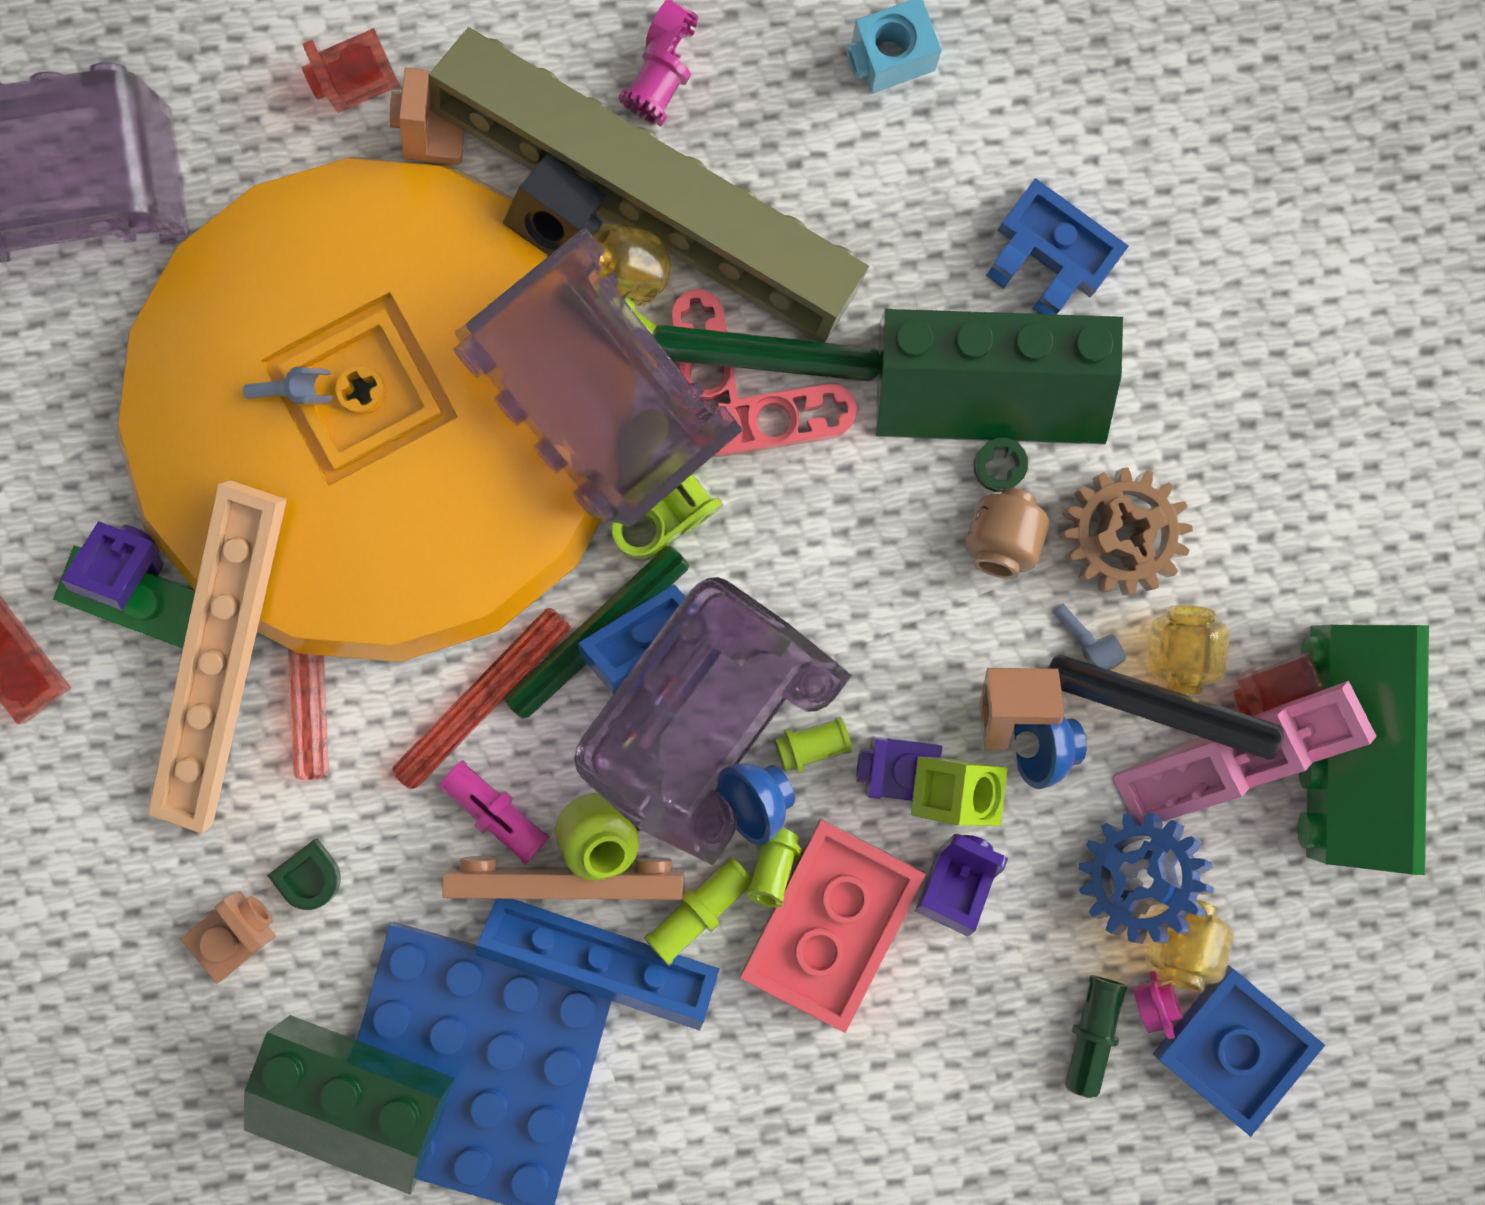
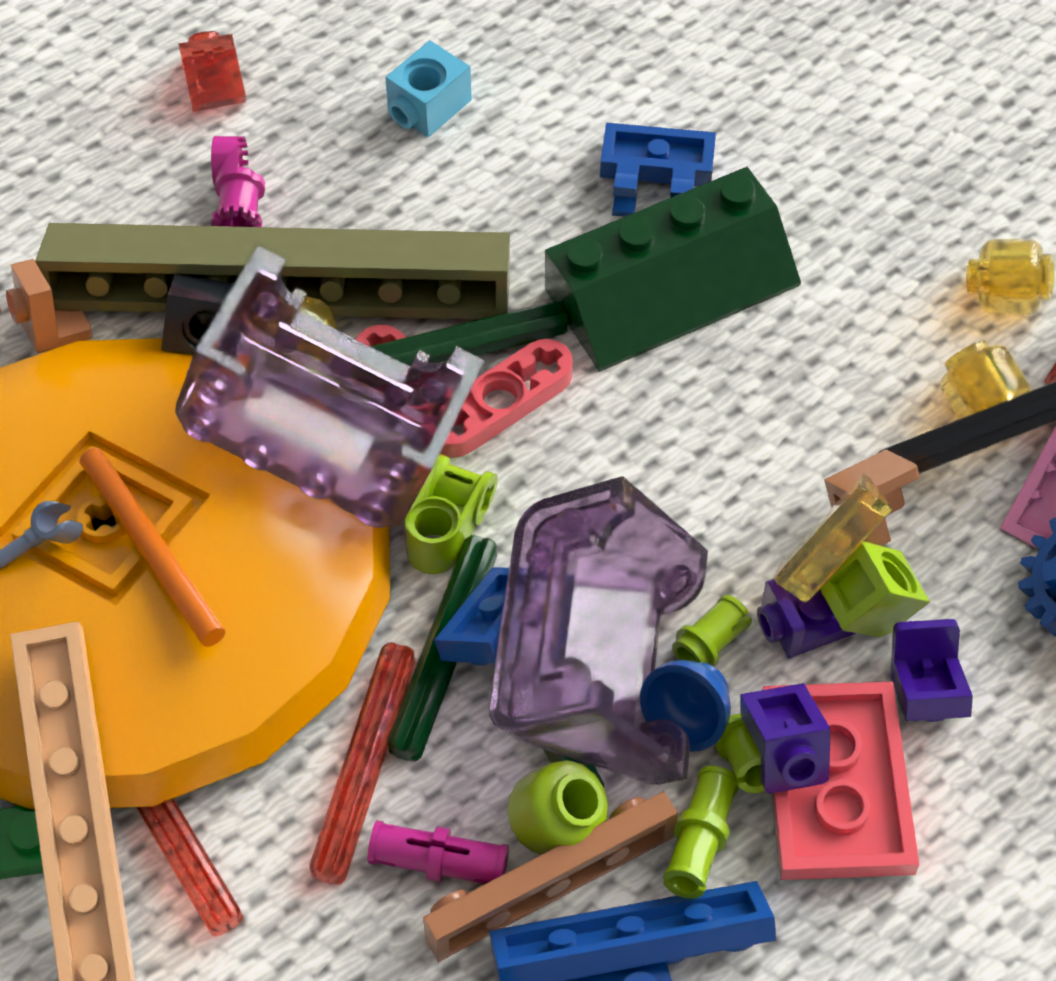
camera: 35 degrees left, 30 degrees down
(379, 446) = (152, 547): none -> orange bar
(805, 884) = (788, 736): none -> dark purple bracket
(947, 742) = (833, 539): none -> clear yellow slope
(986, 454) = (723, 320): dark green bush -> none
(1007, 533) = (765, 376): medium nougat head -> none
(1058, 751) = (930, 515): blue piece -> none
(1103, 653) = (918, 423): sand blue hand -> none
(1138, 550) = (874, 327): medium nougat gear -> none
(1290, 550) = (1011, 276): none -> clear yellow head

